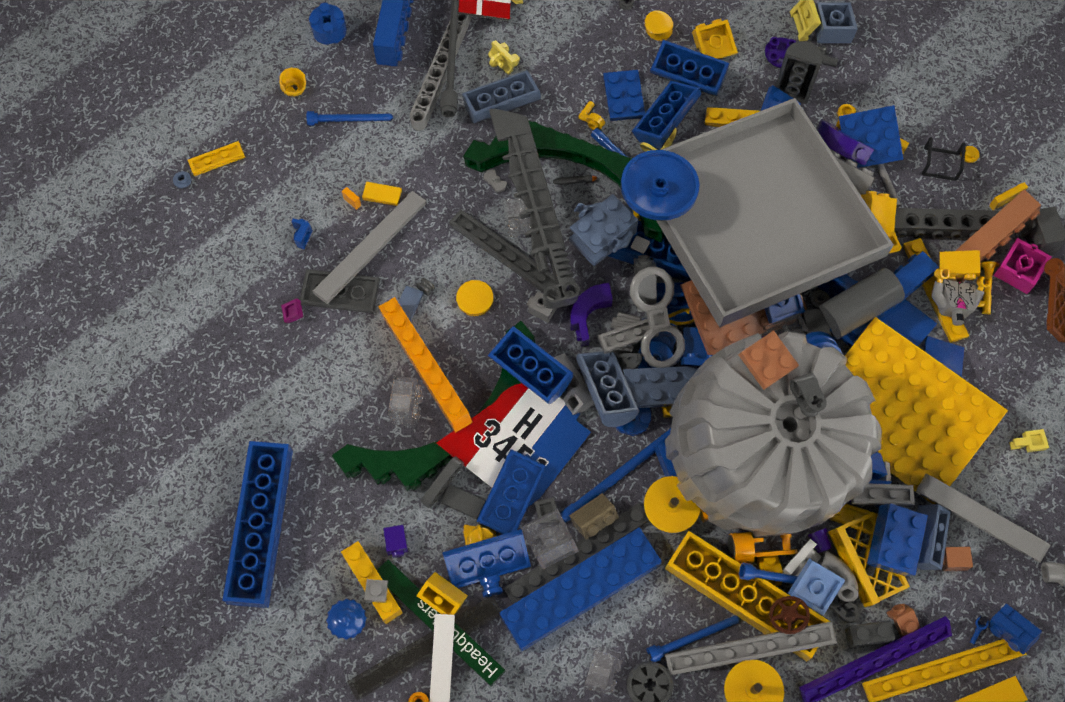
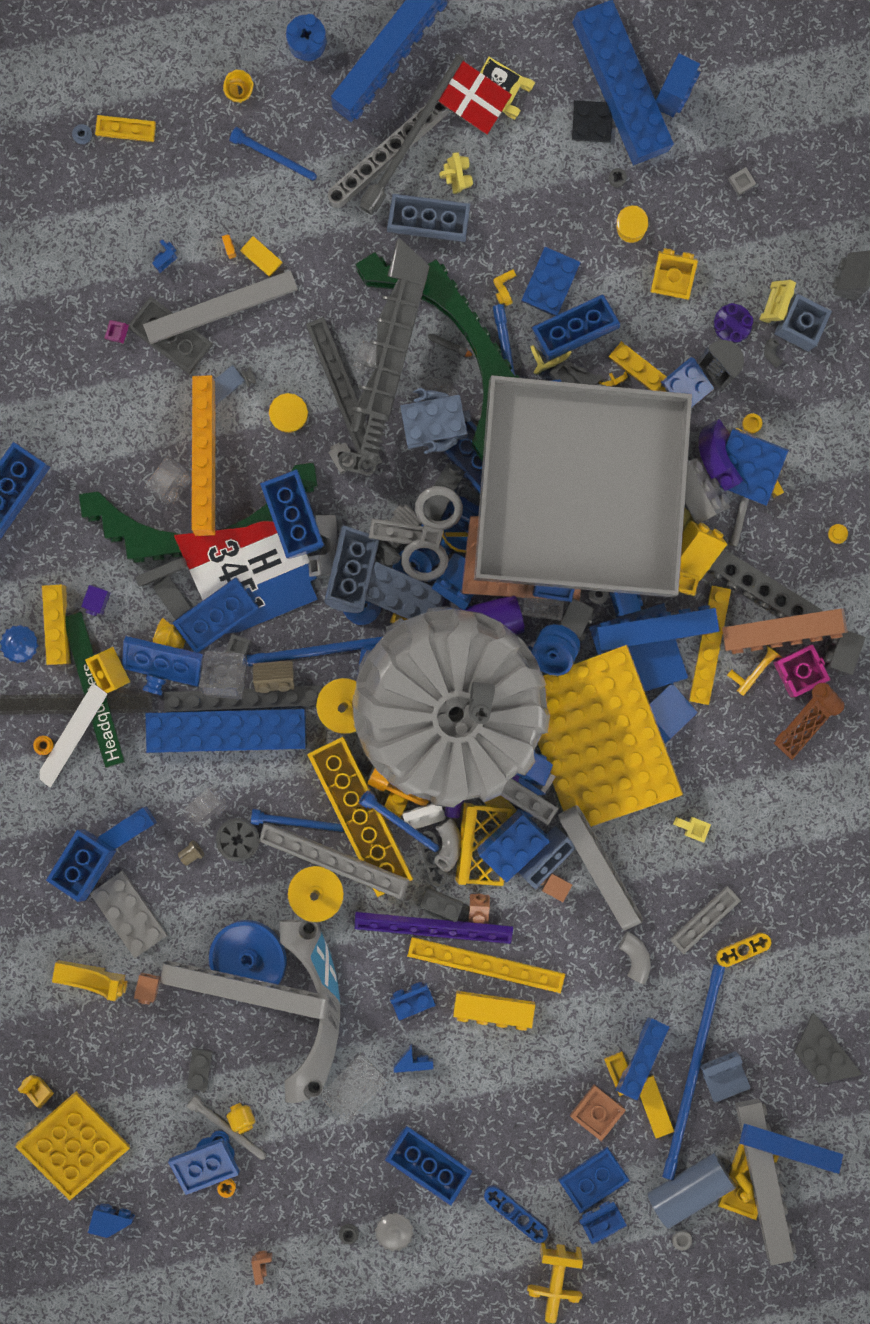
camera: 30 degrees right, 20 degrees up
(376, 590) = (52, 637): light grey plate -> none
(494, 180) = (374, 303): light grey piece -> none
(590, 300) = (384, 477): dark purple arch -> none
(640, 244) = (463, 452): white sticker -> none
(660, 185) = (497, 419): blue dish -> none
(690, 67) = (628, 292): blue brick -> none
(768, 360) = (466, 653): nougat plate -> none
(789, 614) = (379, 854): copper wheel -> none
(816, 586) = (418, 843): medium blue plate -> none
(862, 302) = (621, 625): dark grey brick -> none
(928, 146) = (803, 504): black piece -> none
(957, 298) = (717, 668): light grey torso -> none
(961, 264) = (738, 640): yellow brick -> none
(978, 630) = (538, 950): blue hand -> none
(1007, 196) = (841, 596): yellow tile -> none
(1014, 629) = (562, 969): blue brick -> none

